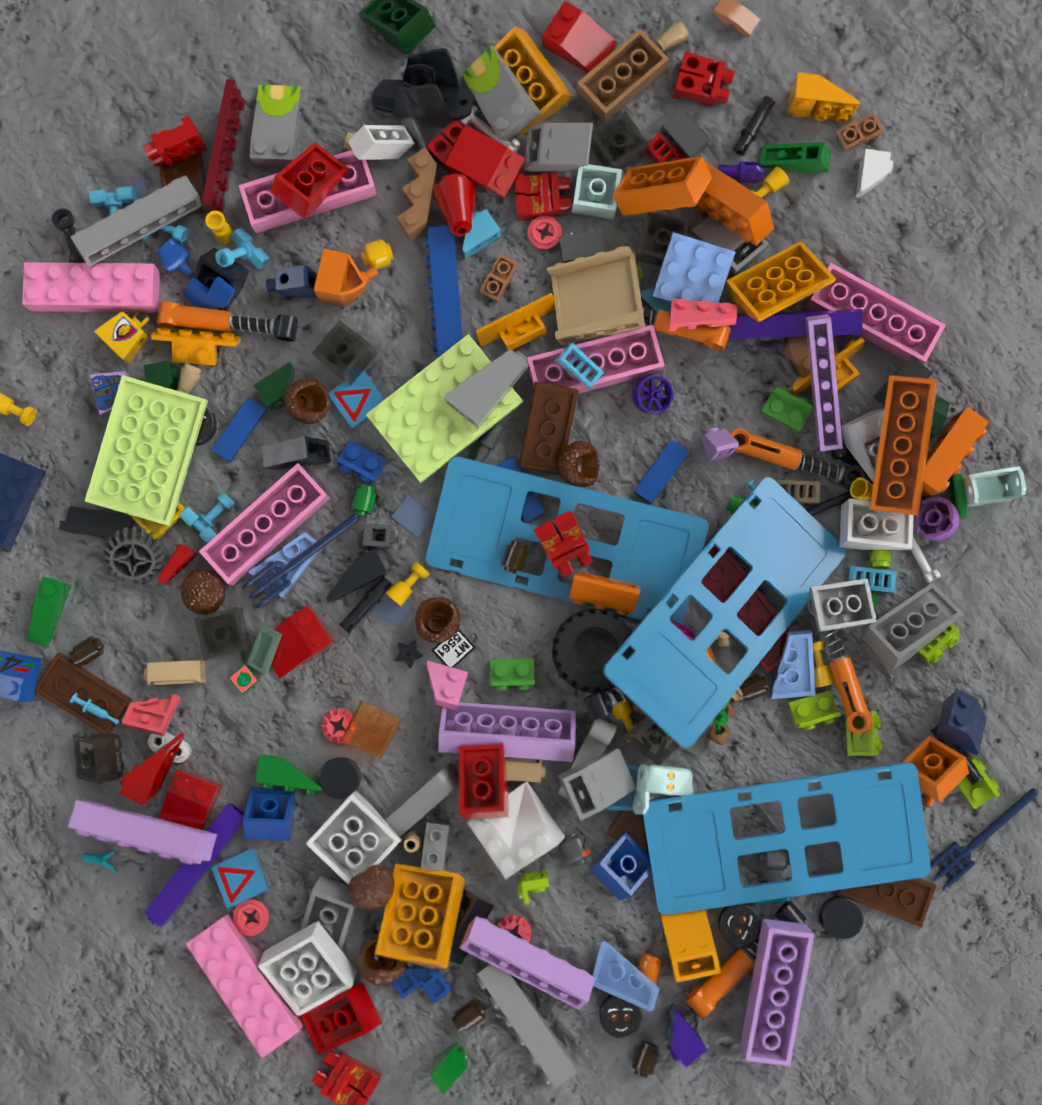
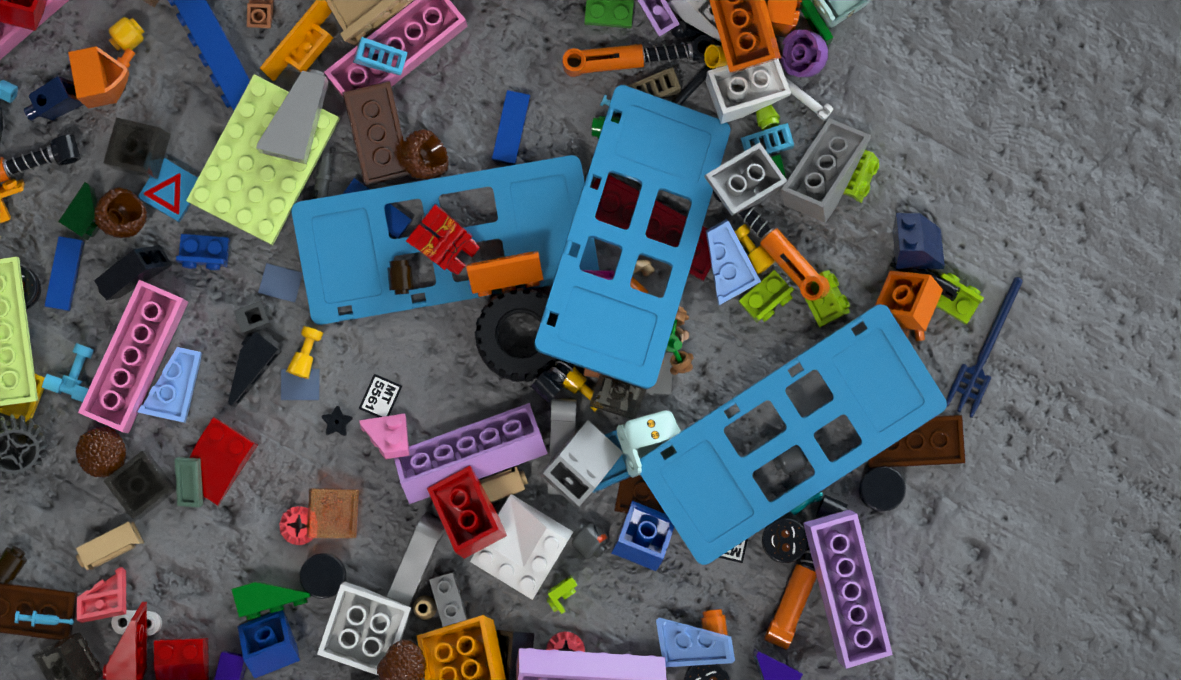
camera: 25 degrees left, 0 degrees up
(179, 560) = (61, 434): red slope -> none
(244, 679) = (182, 522): tile -> none
(282, 572) = (172, 397): dark blue piece -> none
(363, 500) = (223, 289): green brick -> none
(366, 604) = (272, 392): black pin -> none
(437, 619) = (350, 374): reddish brown hair -> none
(512, 673) = (450, 394): bright green bracket -> none
(652, 394) = (467, 53): dark purple wheel -> none
(690, 945) = (744, 582): light orange slope -> none
(718, 444) = (555, 75): lavender slope -> none
(753, 688) = (696, 302): dark brown brick -> none

